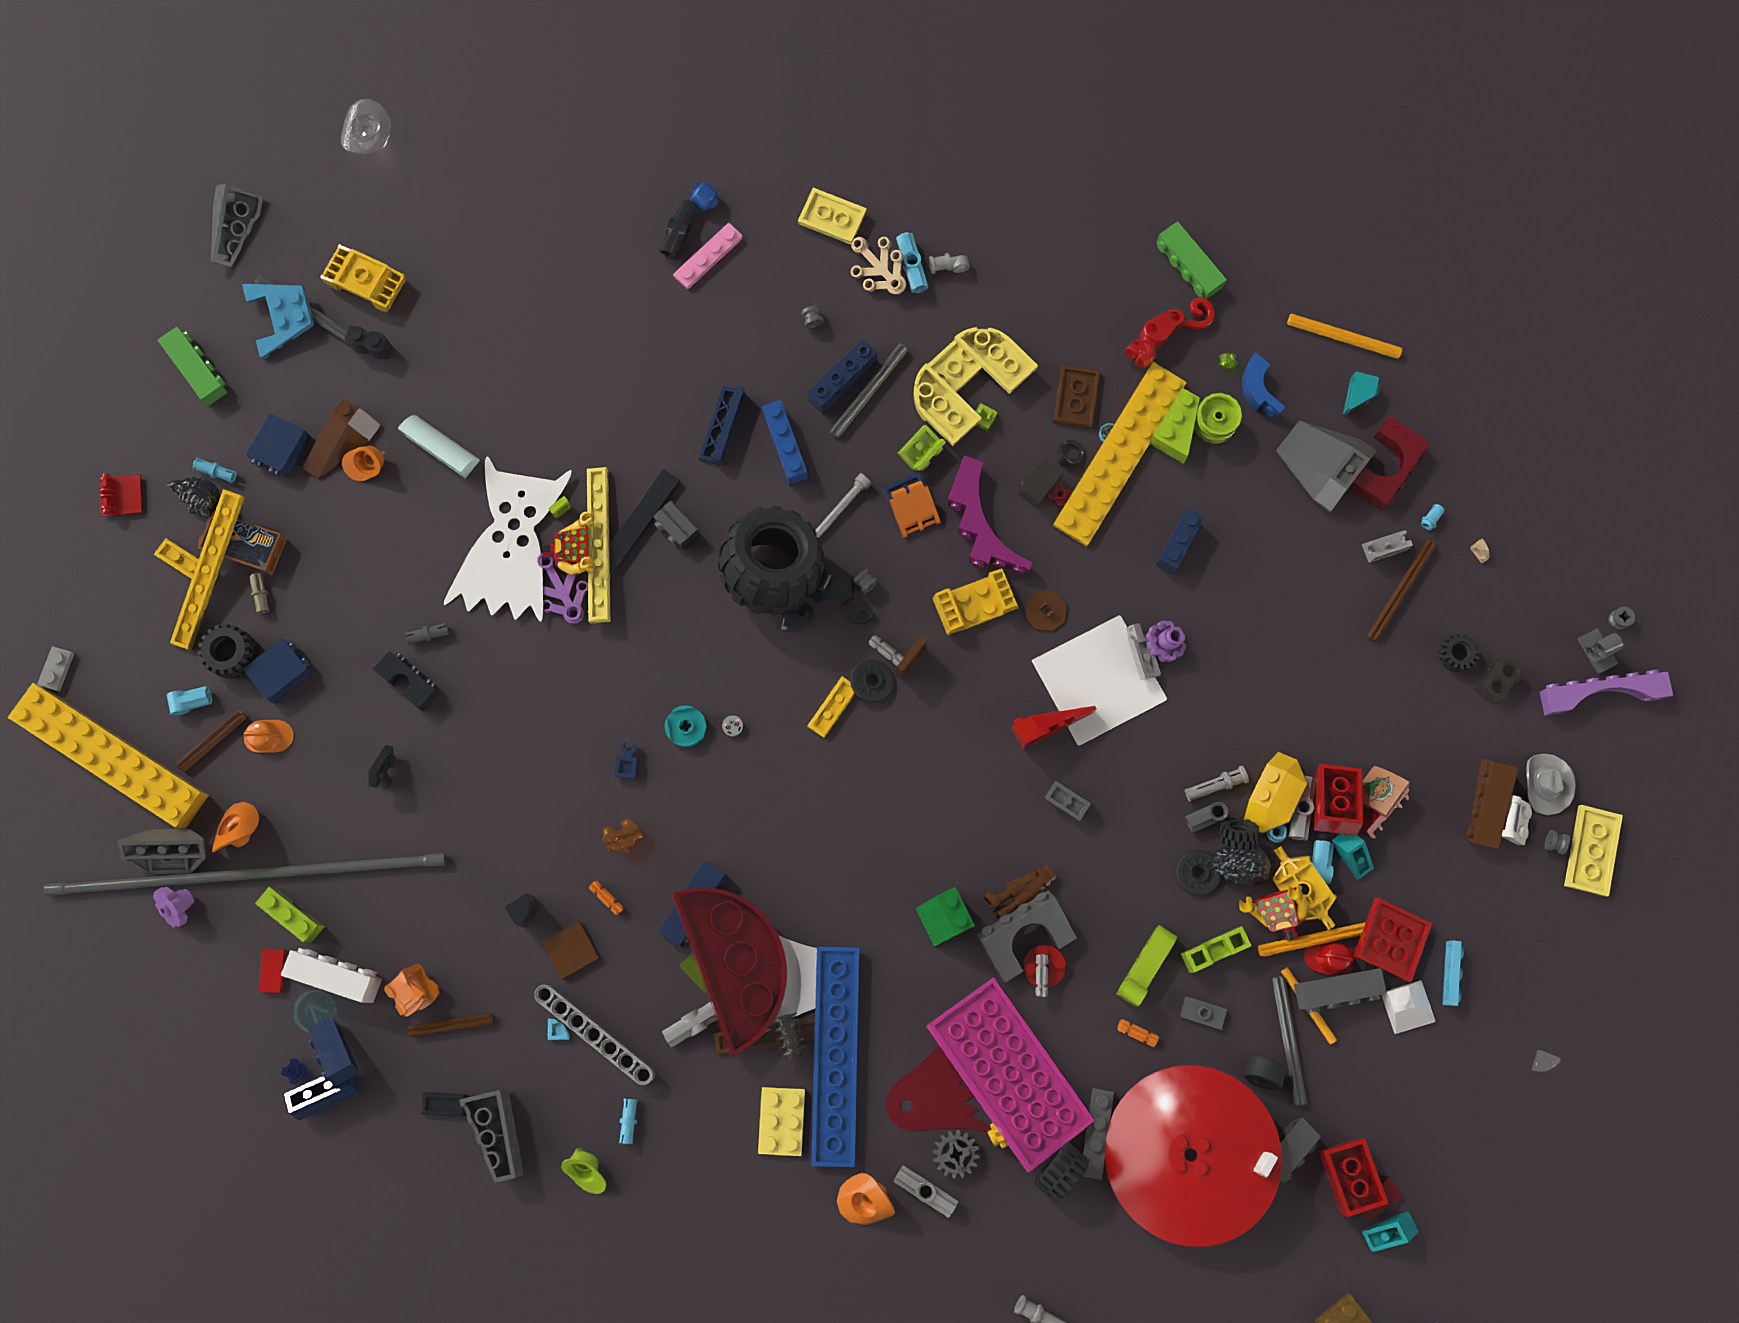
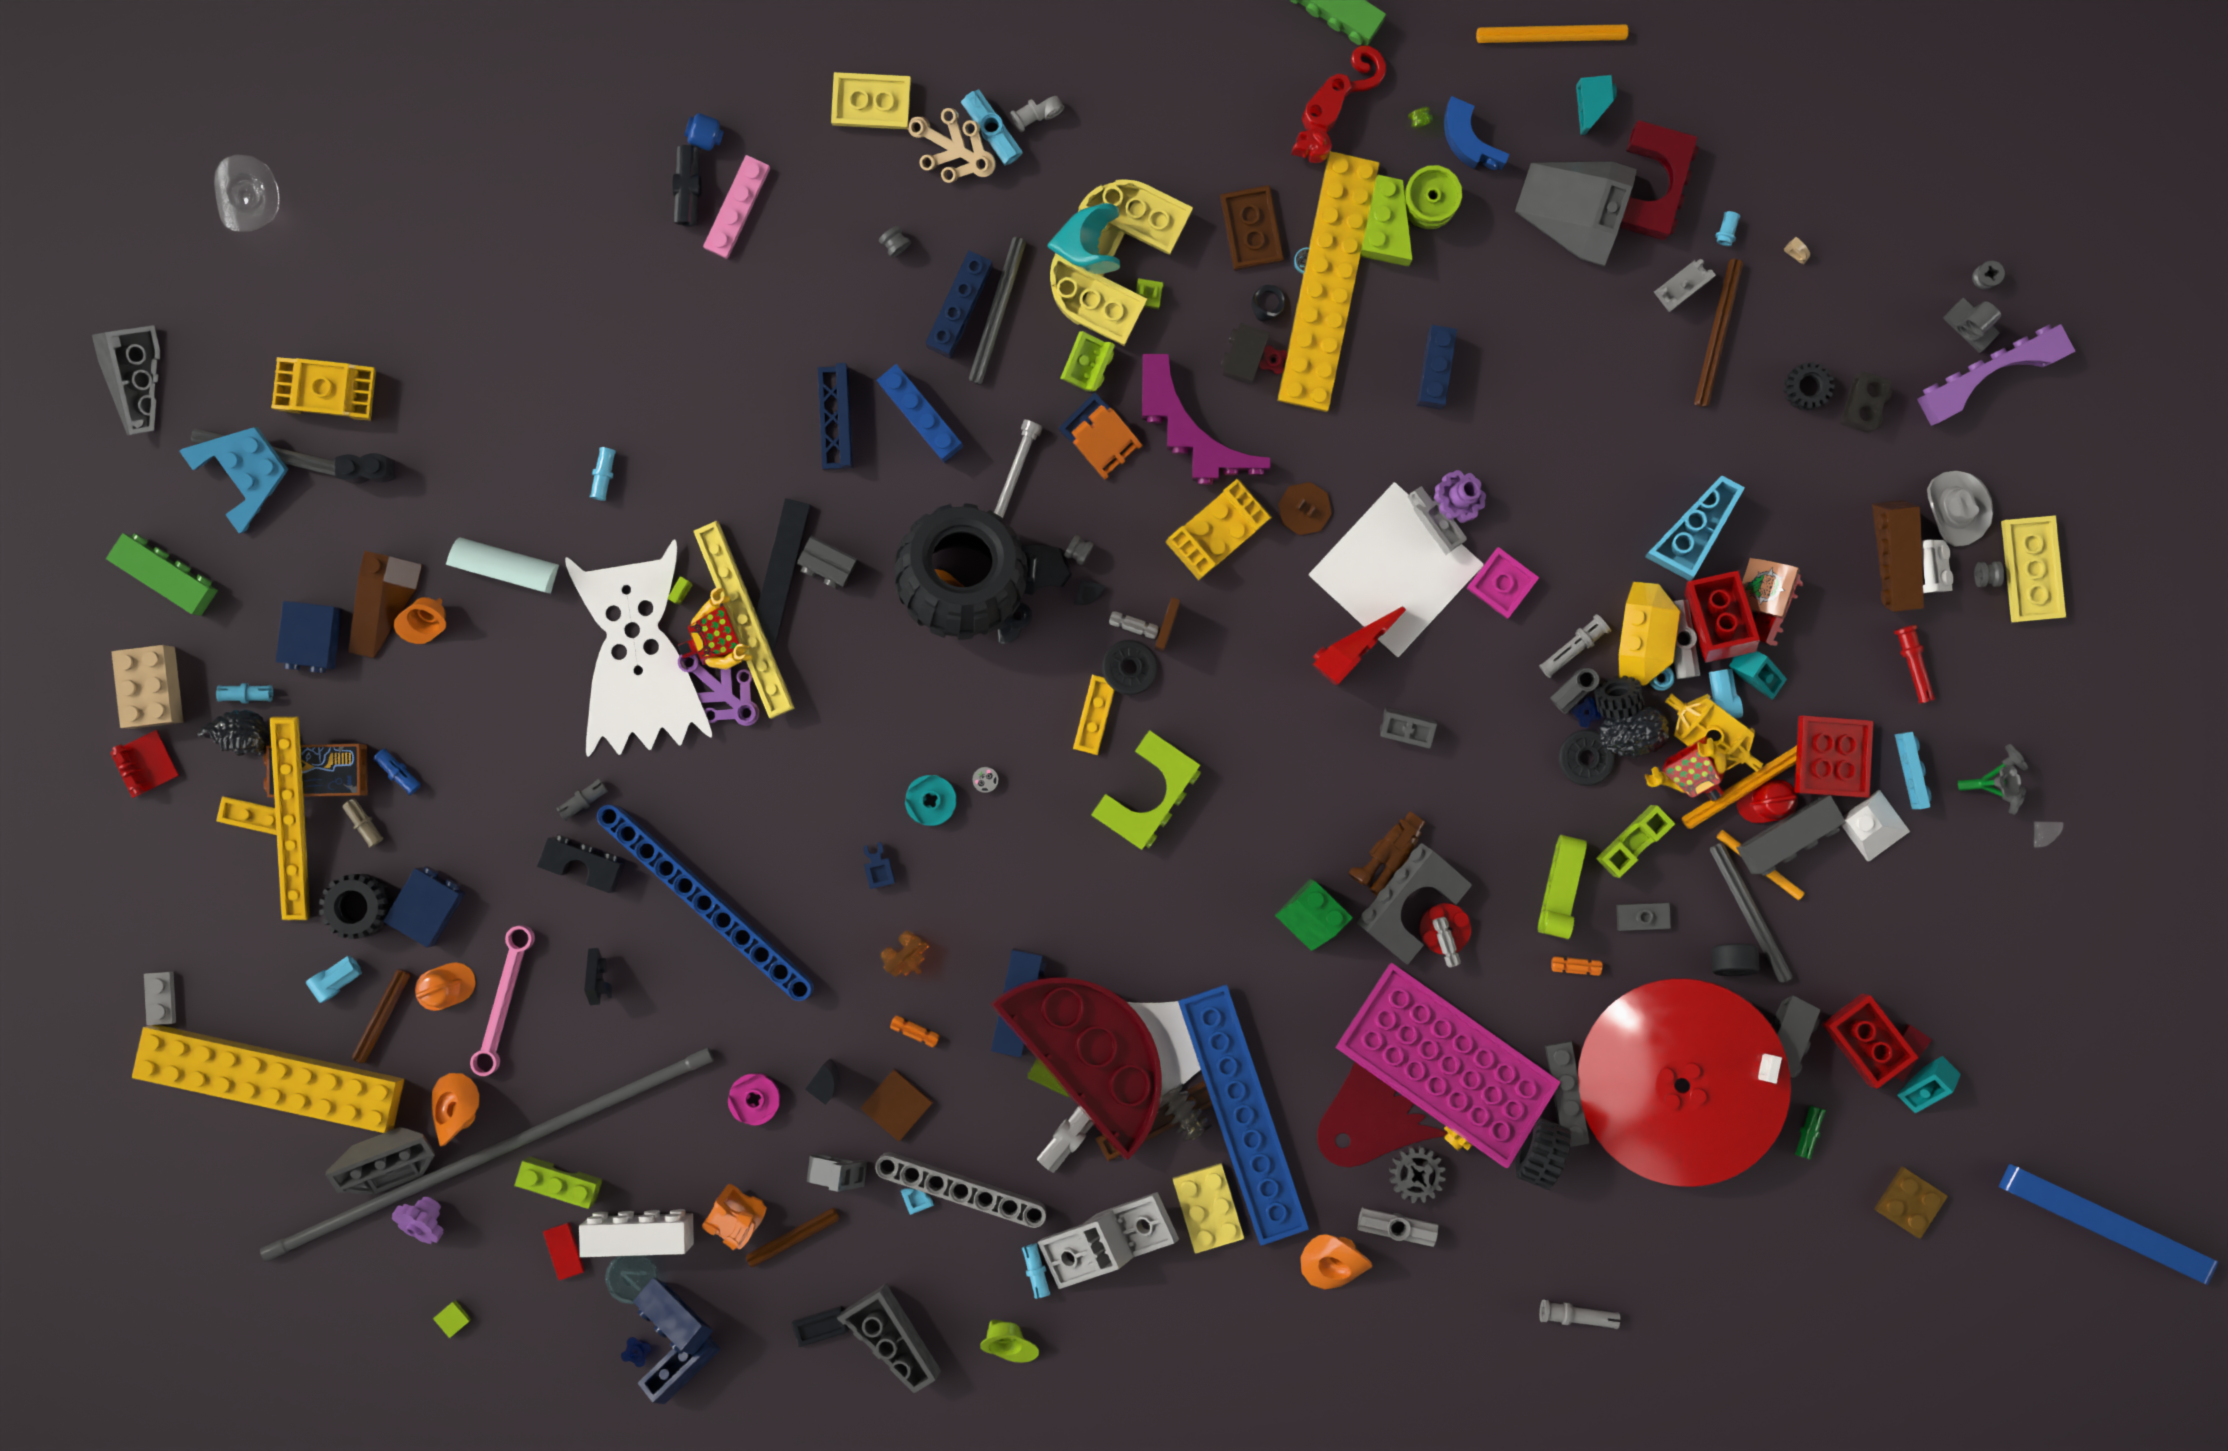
camera: 20 degrees left, 10 degrees up
(146, 440) = (147, 686): none -> tan brick
(165, 992) = (452, 1319): none -> lime tile
(300, 565) = (397, 771): none -> blue pin
(305, 762) = (502, 1000): none -> bright pink piece
(474, 912) = (740, 1093): none -> dark pink plate
(480, 735) = (693, 898): none -> blue beam
(504, 985) = (836, 1172): none -> dark grey tile
(537, 406) = (602, 474): none -> medium azure pin
(693, 1116) = (1108, 1240): none -> light grey bracket
(837, 802) = (1178, 772): none -> lime arch
(949, 355) = (1079, 239): none -> teal animal
(1177, 717) = (1502, 582): none -> dark pink plate
(1205, 842) = (1578, 711): none -> clear blue plate
(1282, 1236) = (1810, 1132): none -> green pin
(1332, 733) = (1693, 535): none -> medium azure wedge
(1479, 880) = (1912, 651): none -> red pin
(1525, 1004) = (2008, 781): none -> dark grey plant

